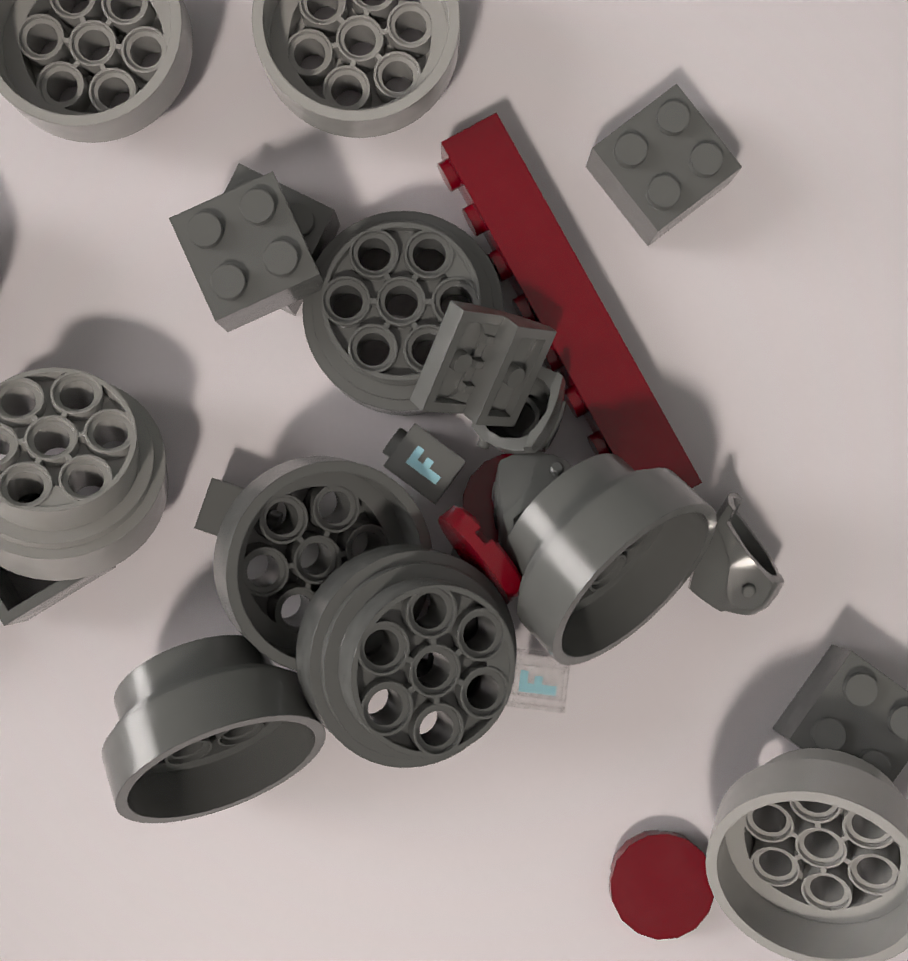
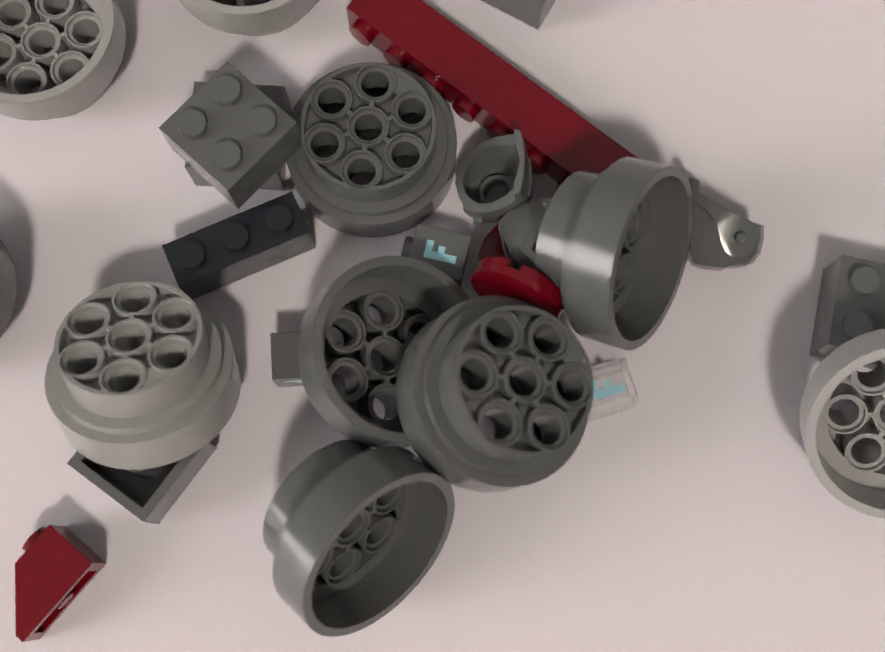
camera: 25 degrees left, 10 degrees down
(218, 365) = (239, 246): none -> black brick
(482, 364) = (453, 148): dark grey slope -> none
(660, 884) = (782, 517): dark red tile -> none

